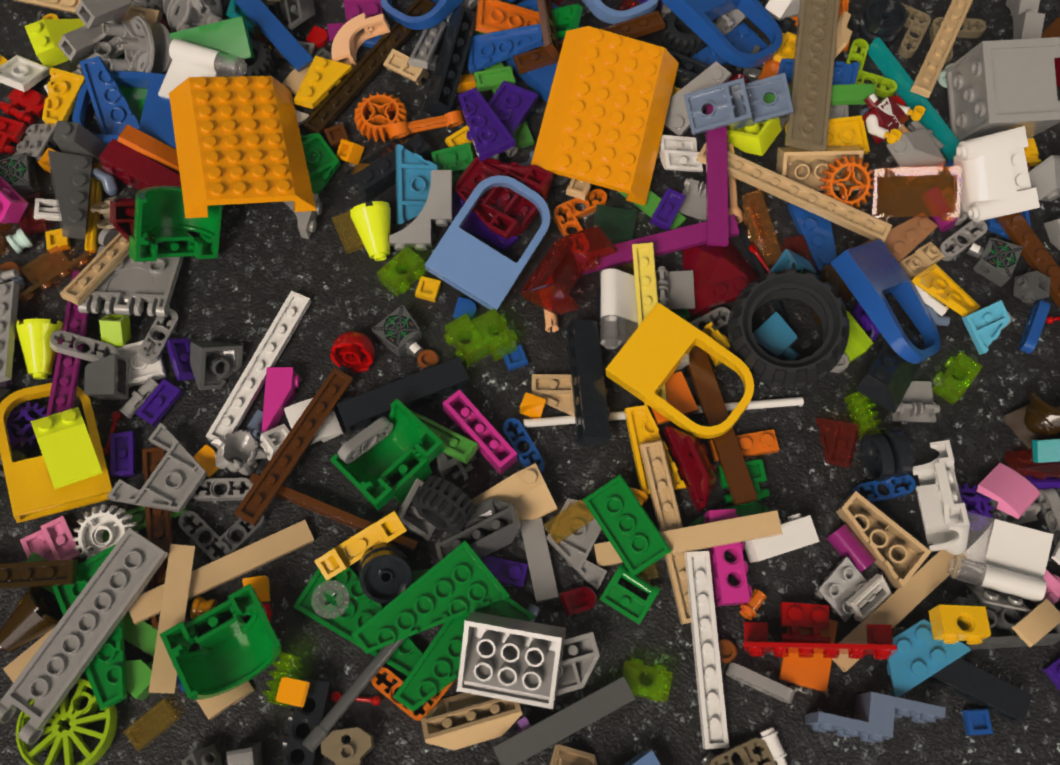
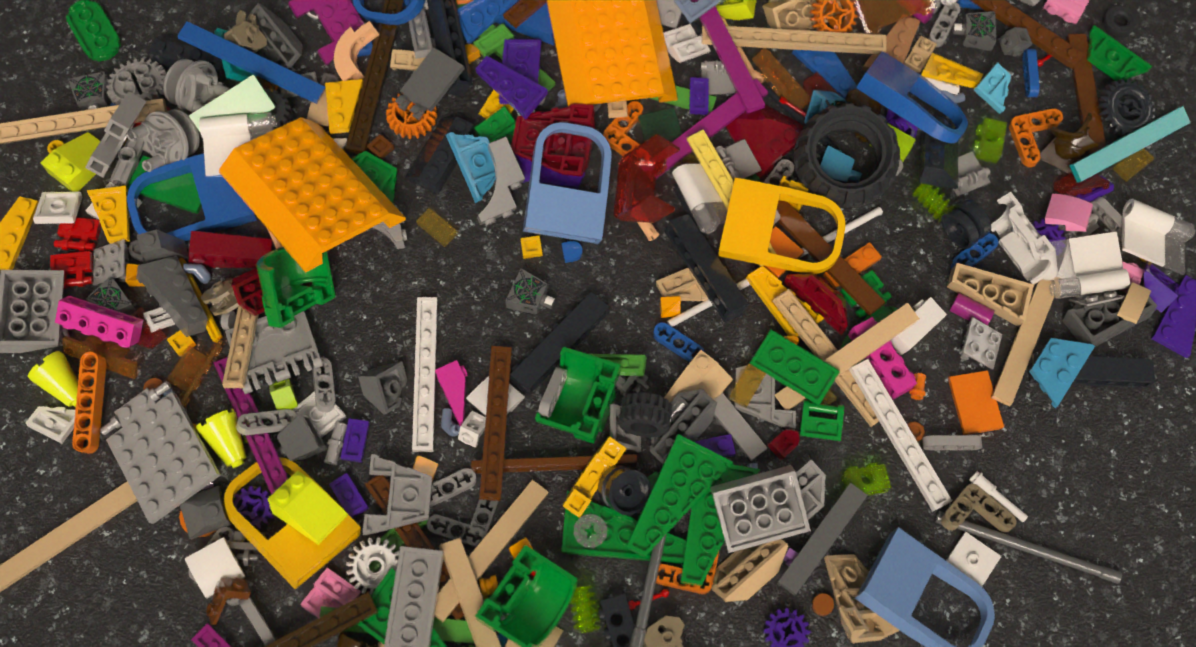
camera: 25 degrees left, 0 degrees up
(19, 241) = (148, 357): light aqua wheel -> none
(107, 99) = (162, 201): blue wing -> none
(116, 416) = (322, 468): red hinge -> none
(149, 147) = (231, 225): orange tile -> none
(180, 357) = (353, 394): dark purple plate -> none
(238, 452) = (448, 450): light grey hair -> none
(292, 691) = (601, 612): light orange slope -> none
(318, 36) = (314, 64): red tile -> none
(349, 152) = (400, 156): light orange slope -> none
(353, 351) = (499, 325): red cylinder -> none
(374, 228) = (460, 215): neon yellow cone -> none
(404, 128) = (457, 105): orange piece -> none
(406, 92) = (429, 83): none -> dark grey tile
(407, 261) = (507, 231): clear neon green brick -> none
(427, 358) = (562, 306): dark orange tile -> none
(462, 329) = (582, 266): clear neon green brick -> none
(479, 430) = (633, 342): dark pink brick -> none
(500, 344) = (615, 269): clear neon green brick -> none
(516, 359) = (633, 273): blue tile -> none
(804, 617) = (962, 377): red plate -> none
(838, 441) = (924, 230): clear red wing -> none
(867, 594) = (1000, 339): white tile -> none
(874, 717) = (1047, 428): sand blue bracket -> none
(878, 644) = (1026, 371): red bracket -> none
(971, 618) = (1068, 329): yellow brick -> none
(977, 722) = (1122, 399): blue tile -> none
(1002, 384) = (1026, 132): none -> orange beam

